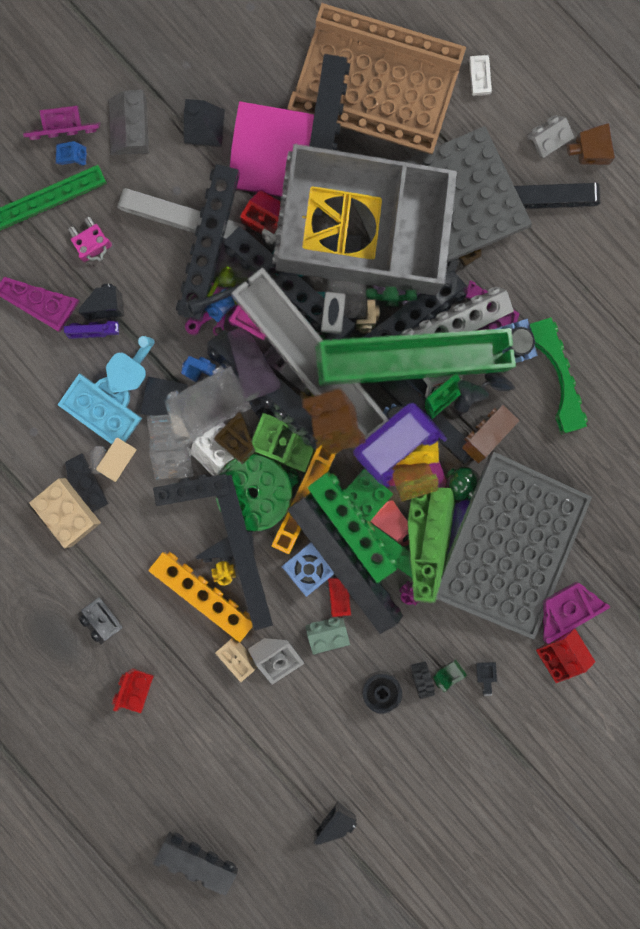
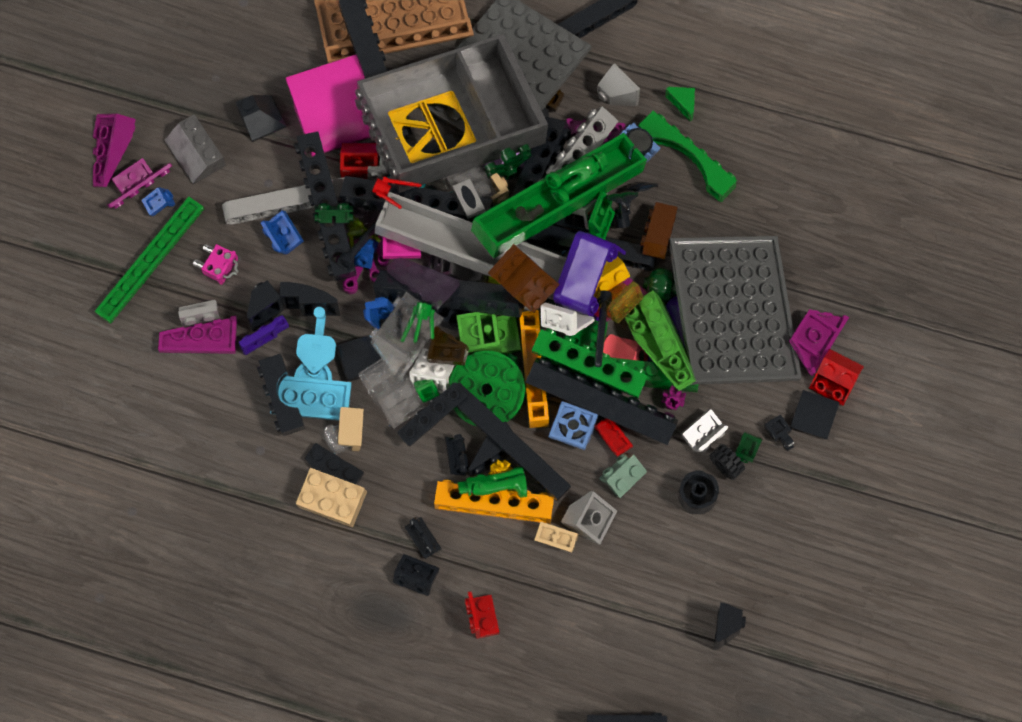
camera: 30 degrees left, 15 degrees down
(46, 276) = (198, 312): none -> light grey bracket
(64, 72) = (112, 137): none -> magenta wedge
(66, 419) = (274, 371): none -> black arch
(124, 591) = (422, 537): none -> black hinge
(143, 320) = (307, 299): none -> black slope
(159, 245) = (282, 233): none -> blue bracket
(194, 532) = (457, 461): none -> black hinge
(199, 463) = (426, 390): none -> green slope
(200, 251) = (326, 212): none -> dark green hinge
(201, 583) = (494, 483): none -> green piece
(232, 395) = (422, 310): none -> green plant
(258, 261) = (382, 188): none -> red plant
(353, 476) = (563, 319): none -> white bracket
(374, 362) = (528, 215): none -> clear smoke arm
(401, 472) = (604, 299): none -> black piece
(420, 639) = (704, 431): none -> bracket
(451, 349) = (584, 170): none -> green piece
(526, 678) = (815, 414): none -> black slope
(532, 278) = (618, 88): none -> light grey slope
(584, 320) = (682, 99): none -> green slope

